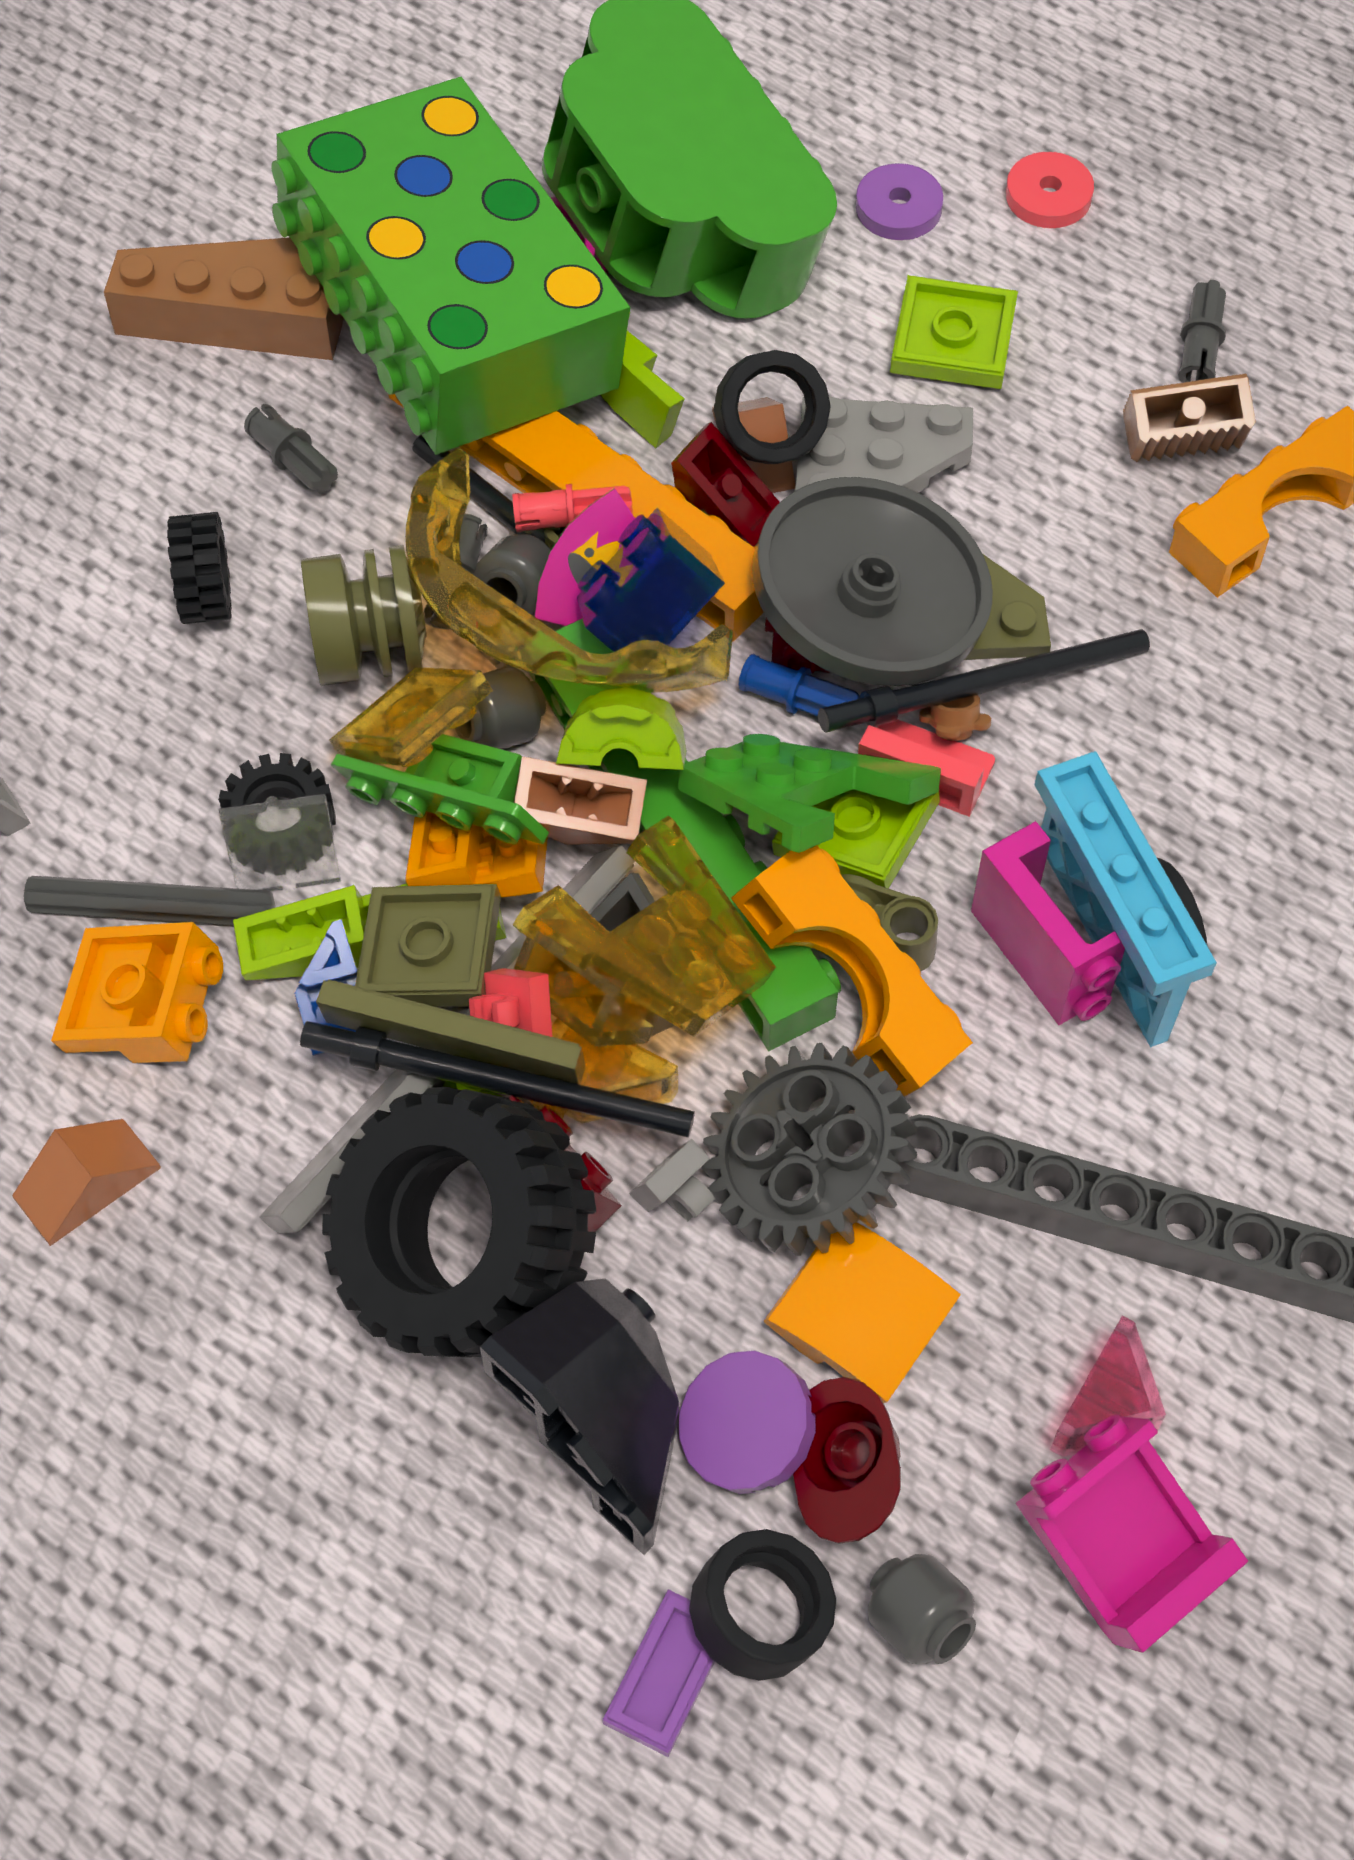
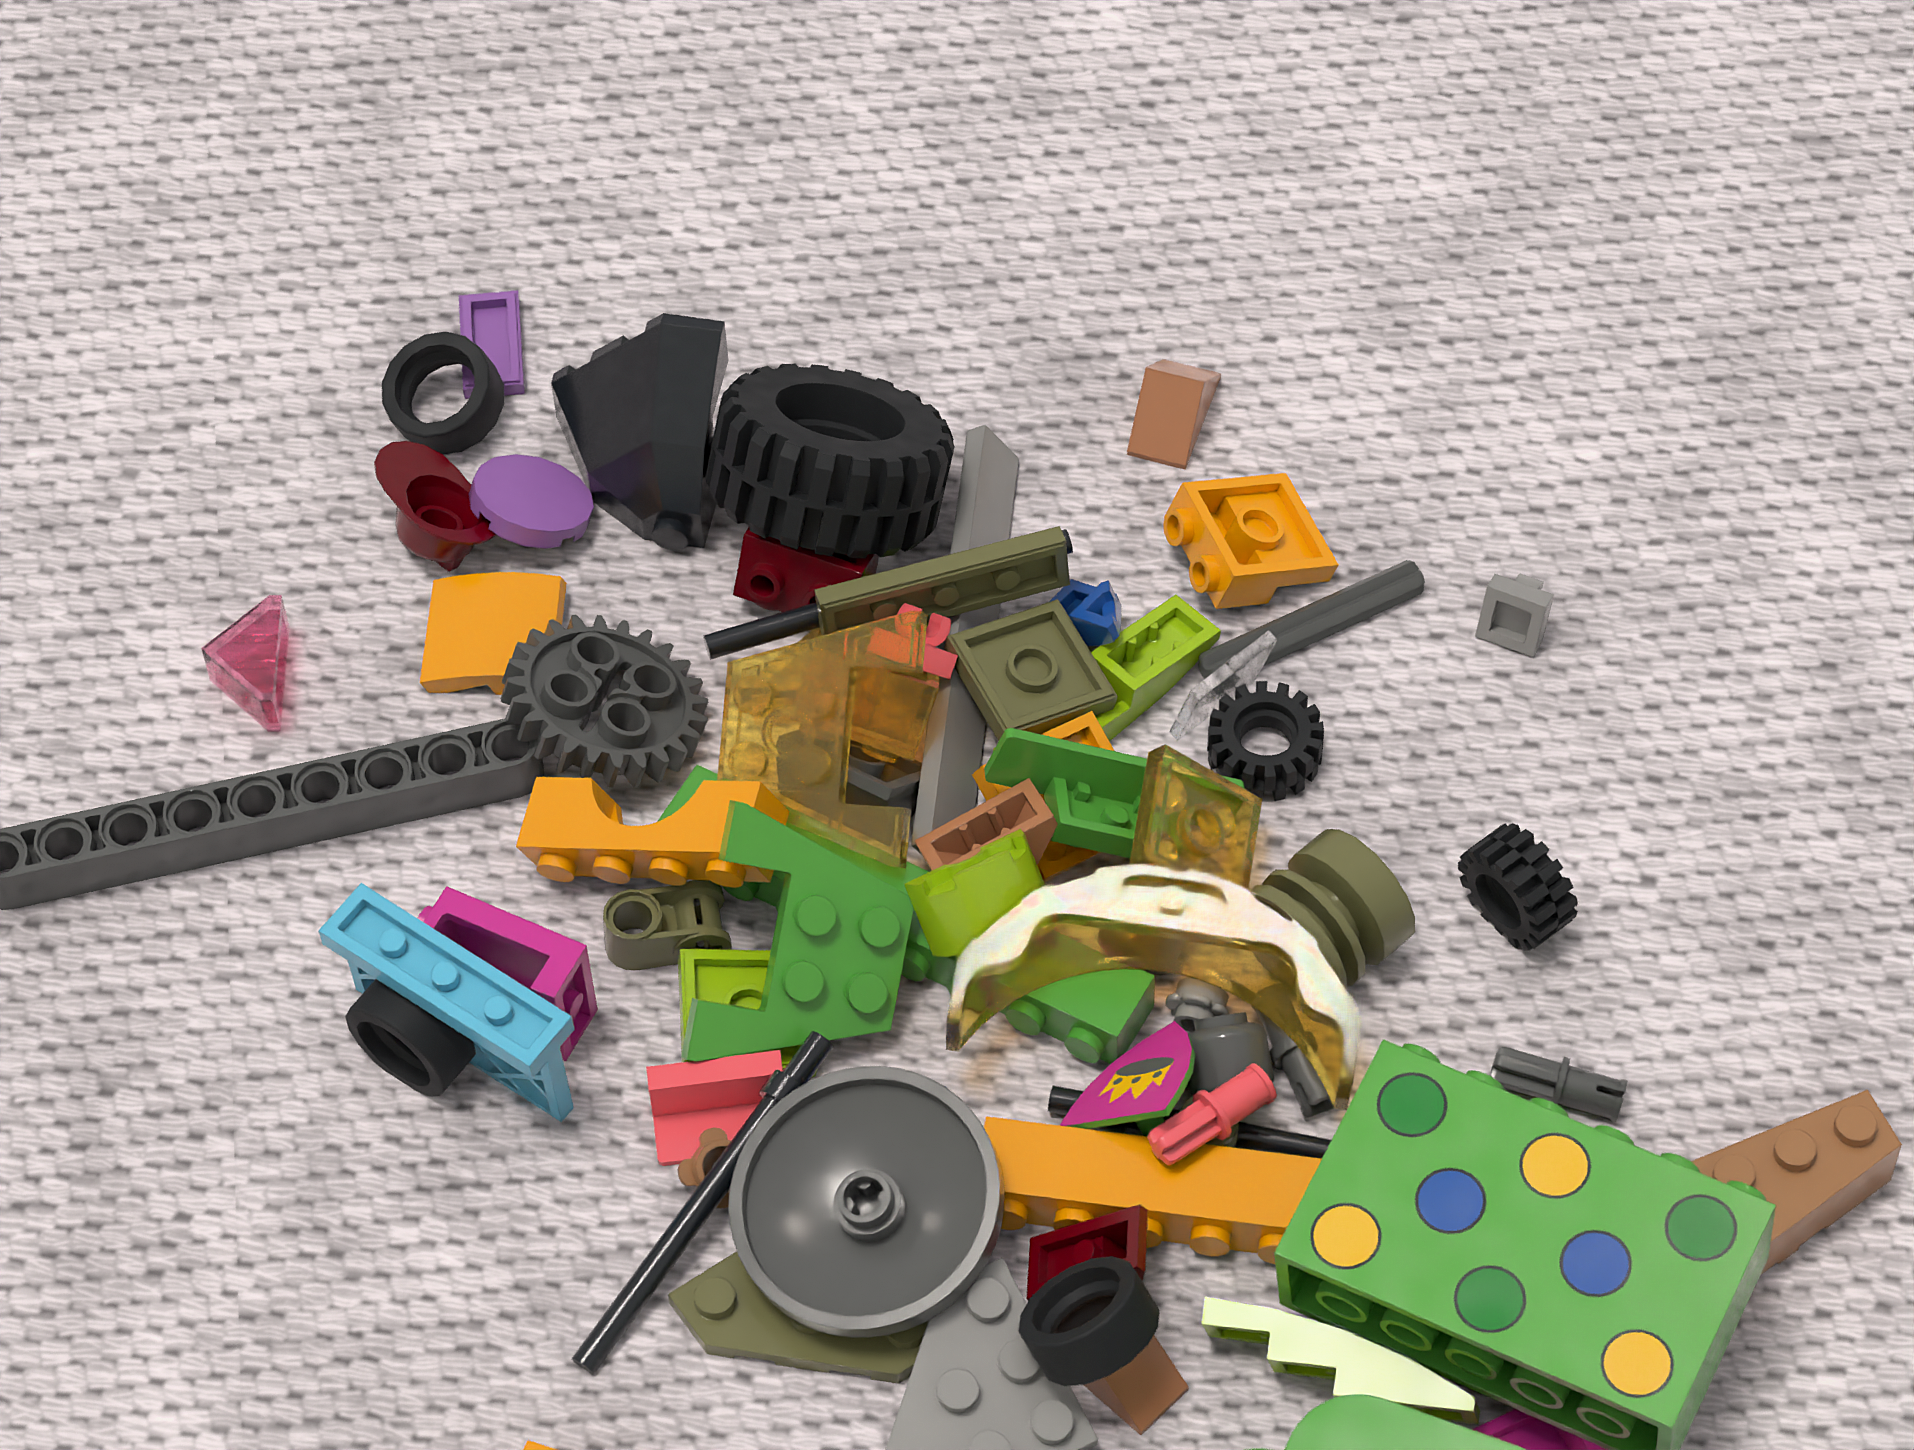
camera: 150 degrees right, 5 degrees down
(648, 585) = (1061, 1040): clear blue brick -> none
(674, 1182) = (705, 615): light grey tile -> none
(921, 1609) = (325, 456): dark grey head -> none
(1127, 1534) = (187, 567): dark pink panel -> none

